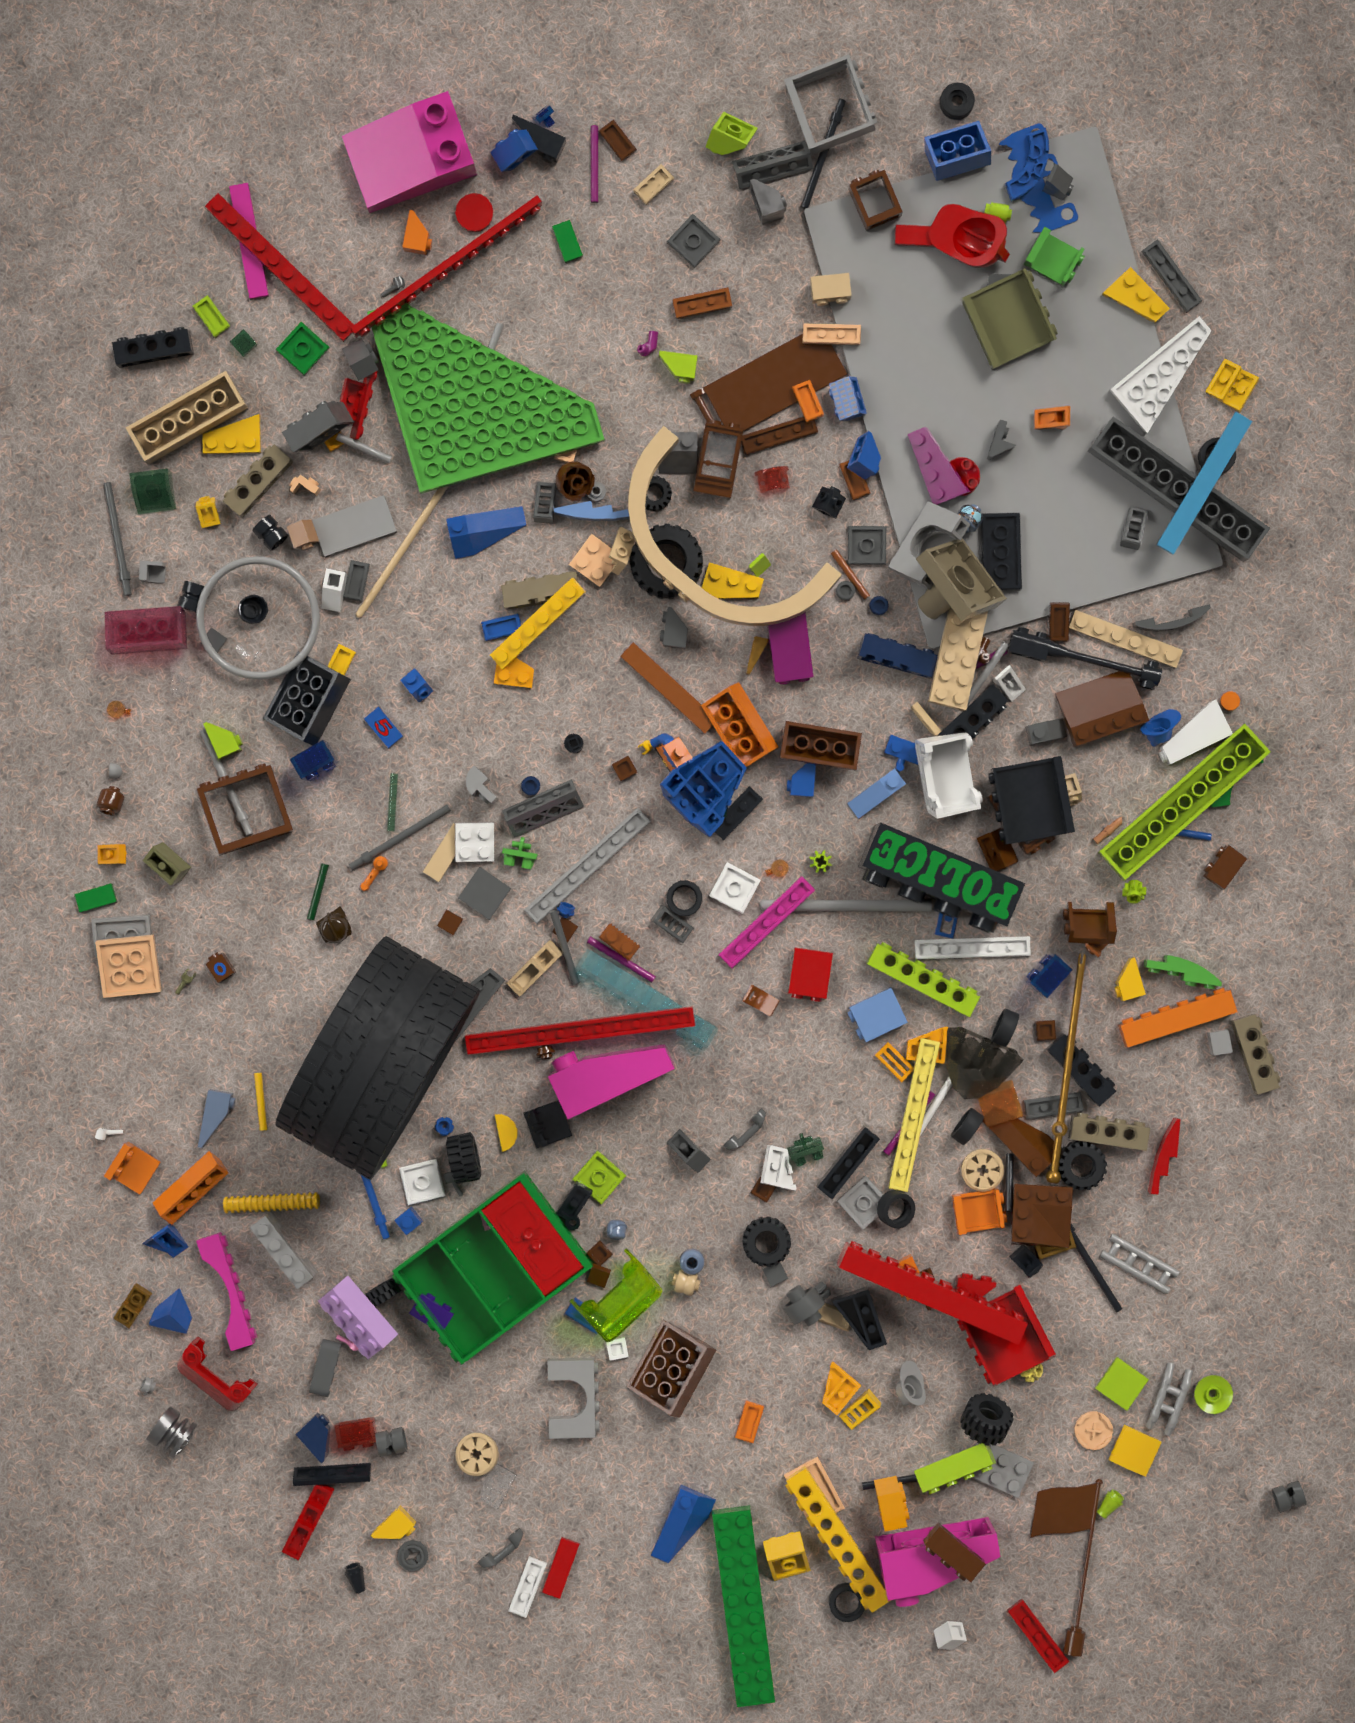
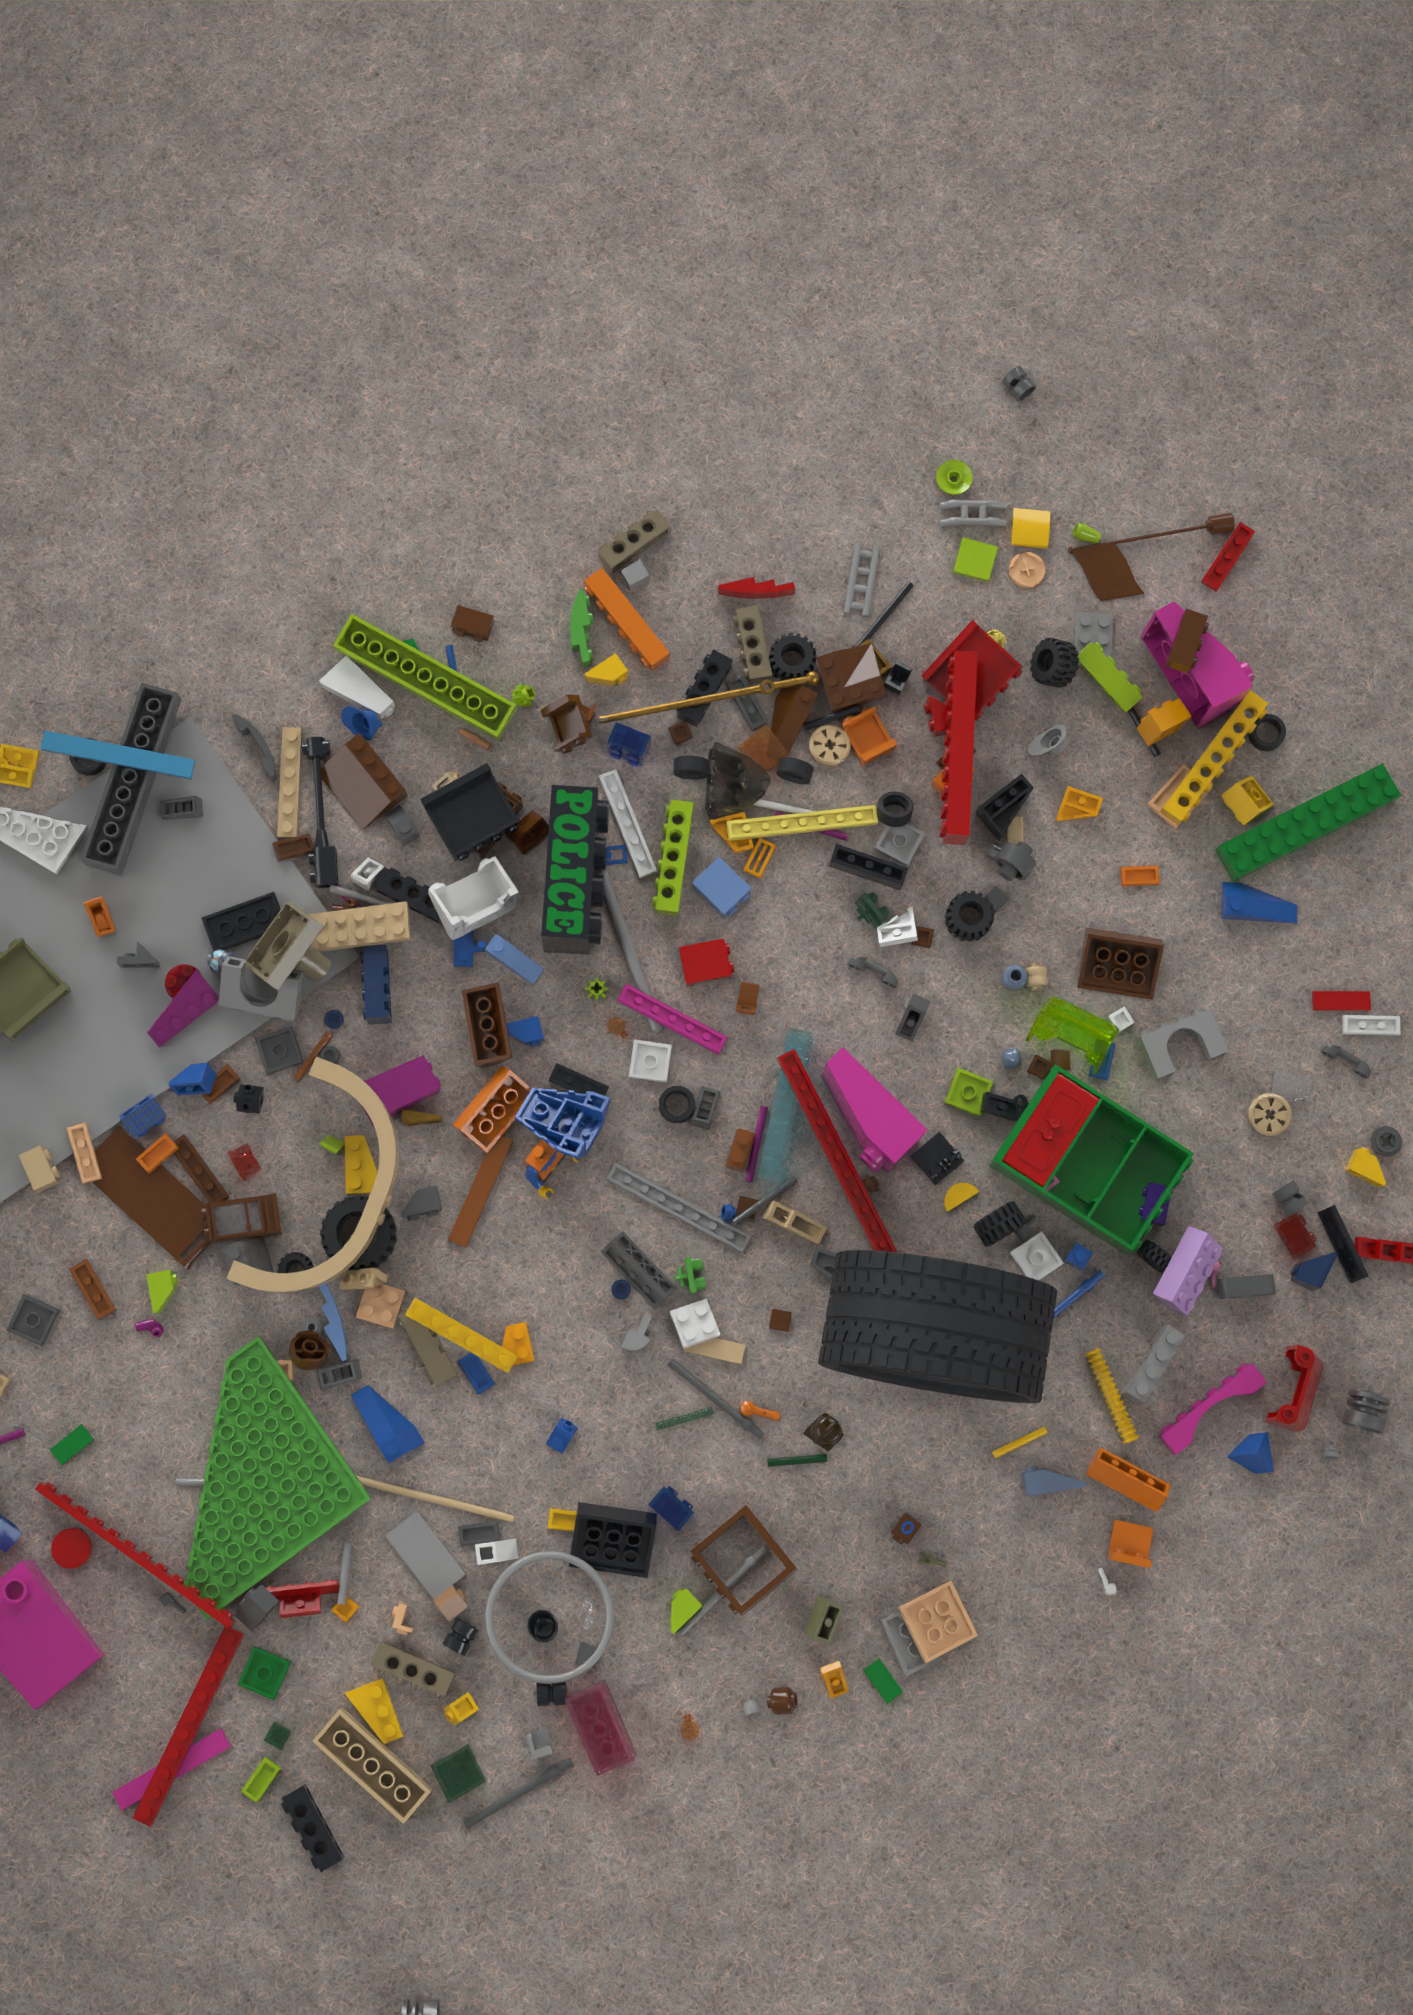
camera: 120 degrees left, 10 degrees down
(132, 1305) = (1261, 1496): pearl gold slope -> none
(168, 1241) = (1186, 1484): blue slope -> none
(317, 426) = (338, 1626): dark grey brick -> none
(383, 727) = (614, 1453): blue tile -> none
(416, 236) = (113, 1597): orange slope -> none
(439, 1126) = (981, 1255): blue plate -> none
(484, 893) = (740, 1297): dark grey tile -> none
(573, 743) = (565, 1261): black wheel -> none
(624, 768) = (573, 1204): reddish brown plate -> none
(856, 1404) = (1073, 778): yellow slope -> none
(925, 719) = (427, 938): tan tile -> none
(950, 1635) = (1259, 632): white panel -> none
(1230, 701) = (316, 670): orange tile -> none

